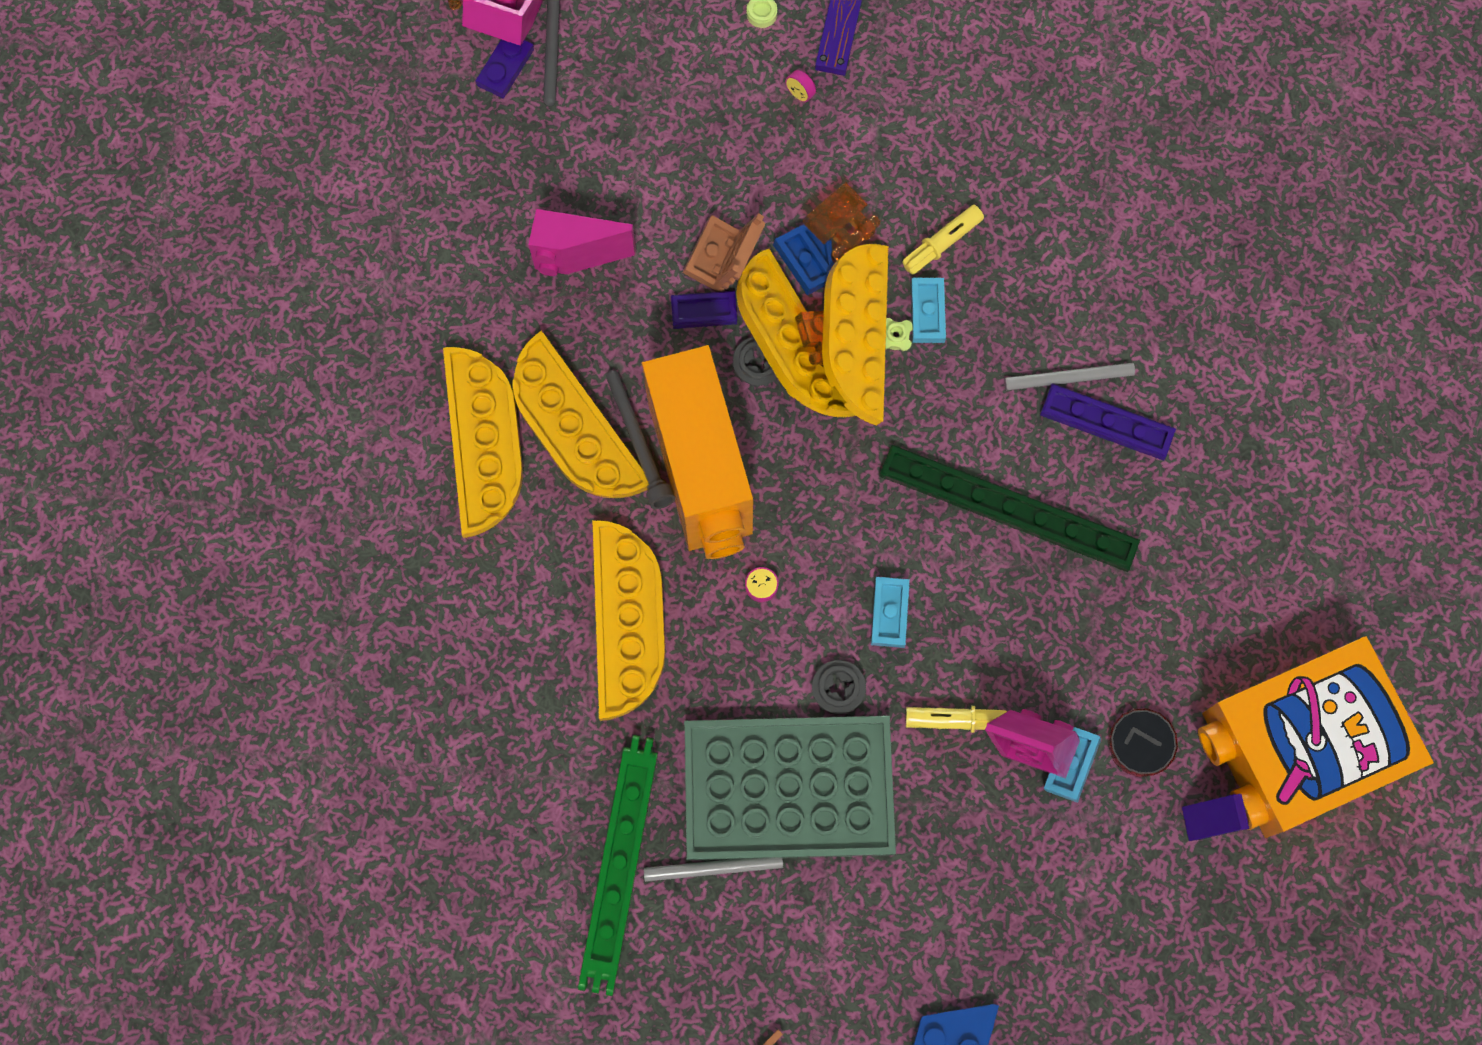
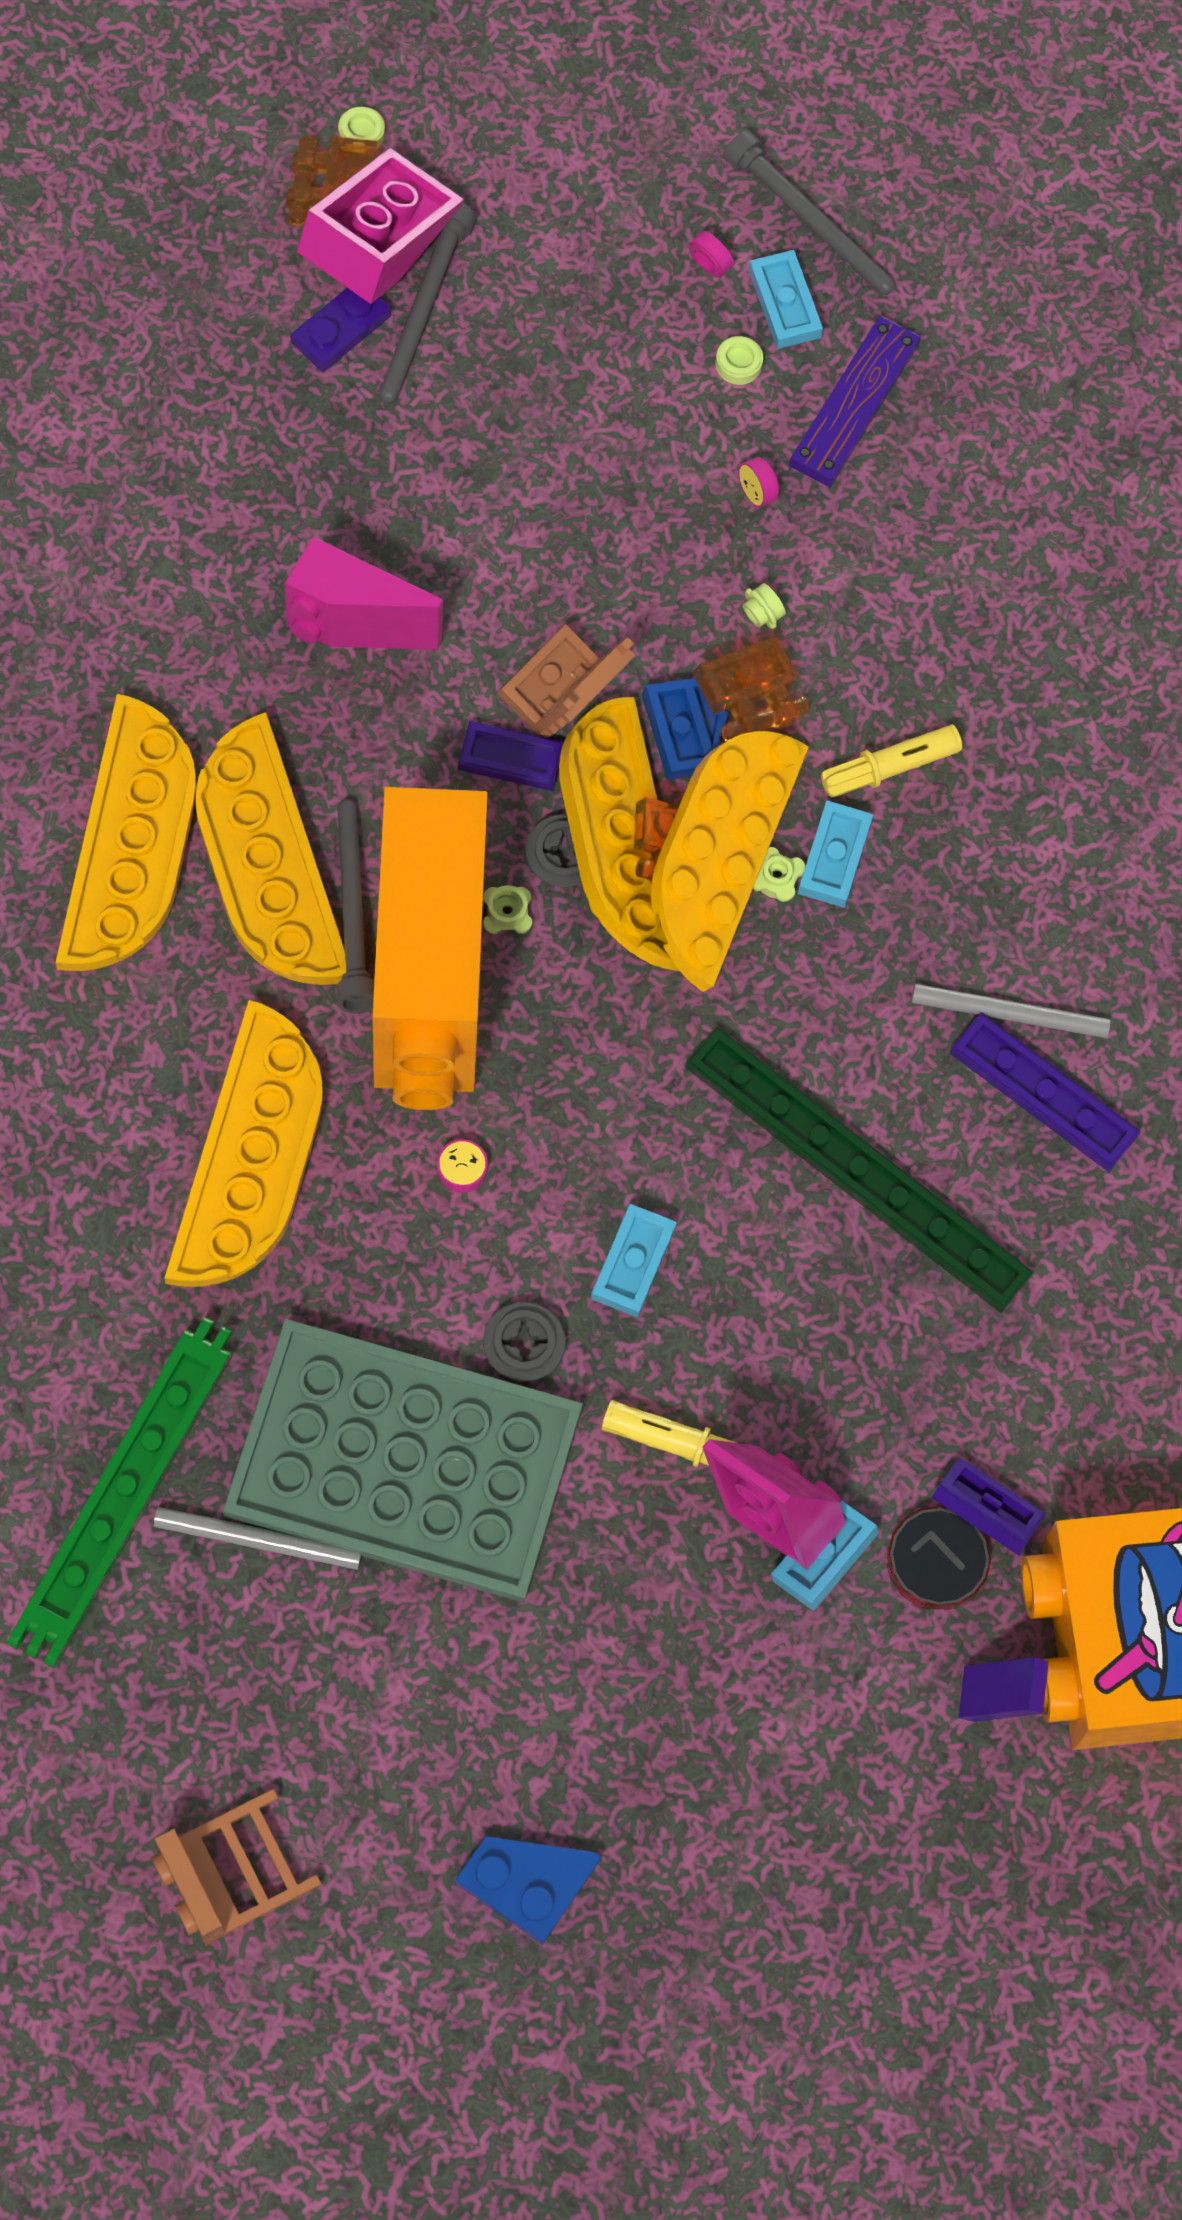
camera: 10 degrees right, 5 degrees down
(740, 402) = (507, 896): none -> yellowish green plate
(830, 165) = (763, 606): none -> yellowish green plate
(1164, 702) = (988, 1506): none -> dark purple tile

